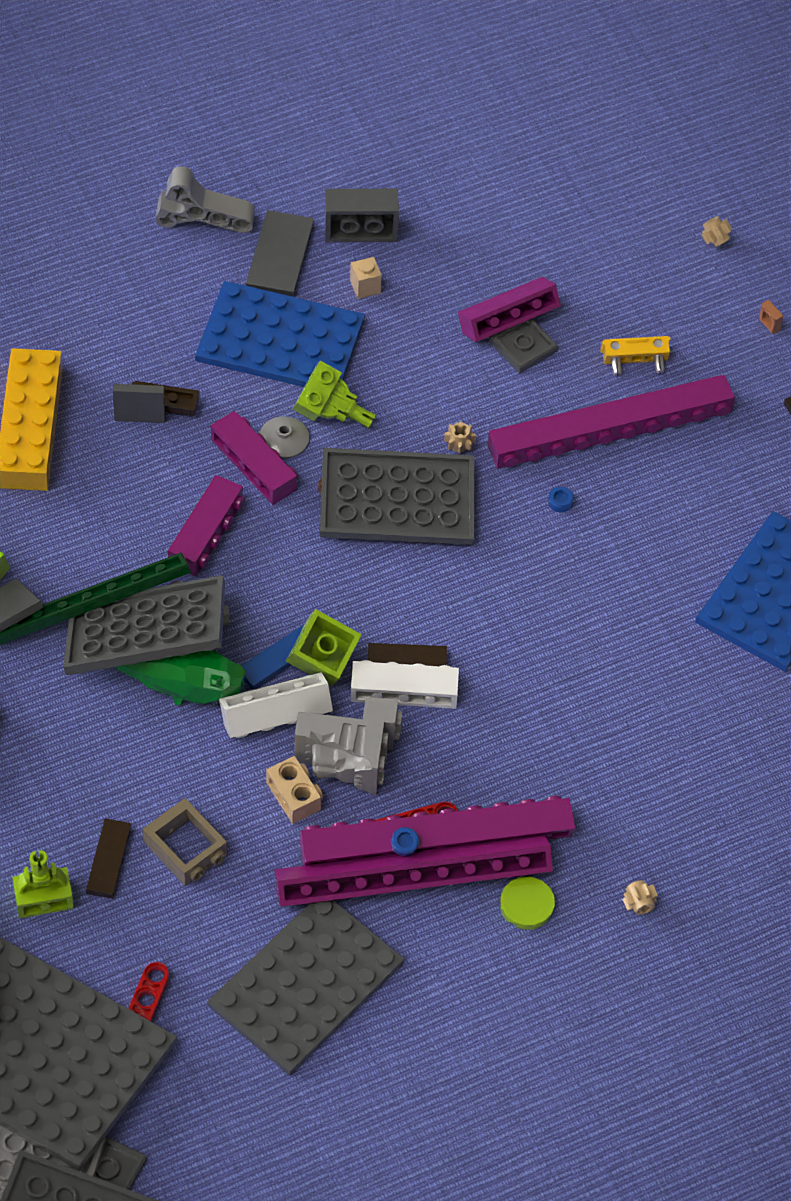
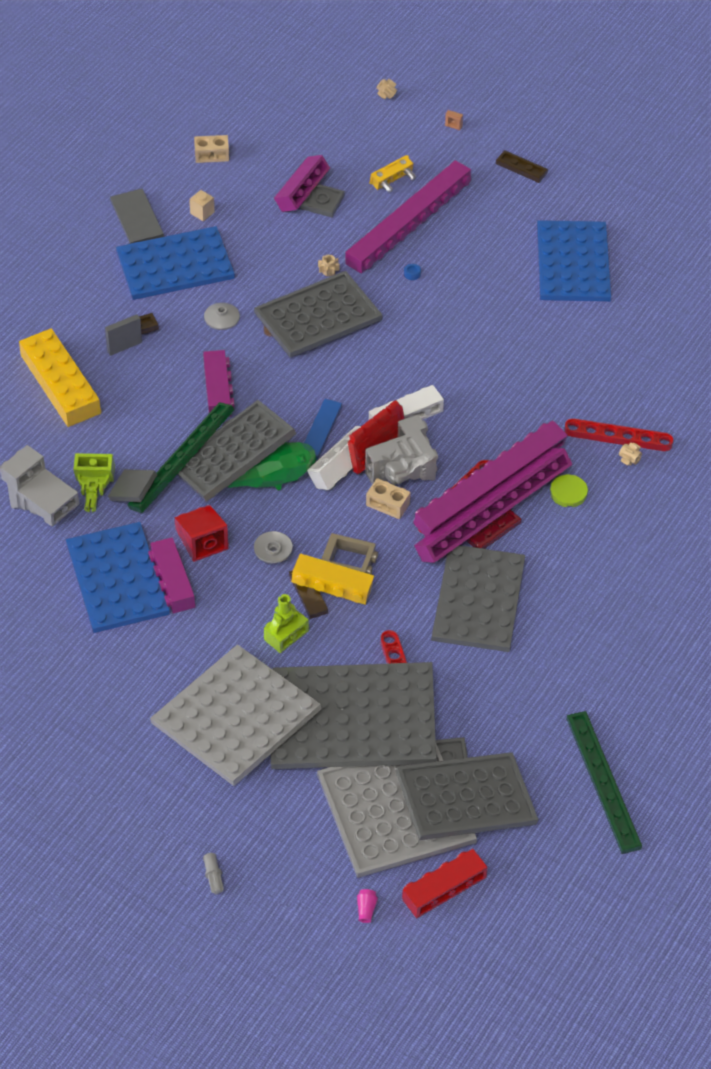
camera: 30 degrees left, 5 degrees down
(39, 711) = (202, 532): none -> red slope
(106, 767) = (273, 547): none -> light grey dish
(143, 858) = (332, 579): none -> yellow brick
(189, 201) = (64, 210): light grey beam -> none
(254, 457) = (215, 333): magenta brick -> none
(323, 647) = (344, 411): lime brick -> none
(327, 697) = (375, 431): none -> red hinge
(330, 398) = (235, 278): lime brick -> none
(361, 215) = (173, 171): dark grey brick -> none
(394, 904) = (495, 530): none -> dark red tile
(404, 841) = (480, 489): blue tile -> none
(407, 654) = (392, 394): dark brown tile -> none
(436, 206) = (211, 148): none -> tan brick
(652, 859) = (618, 431): none -> red beam

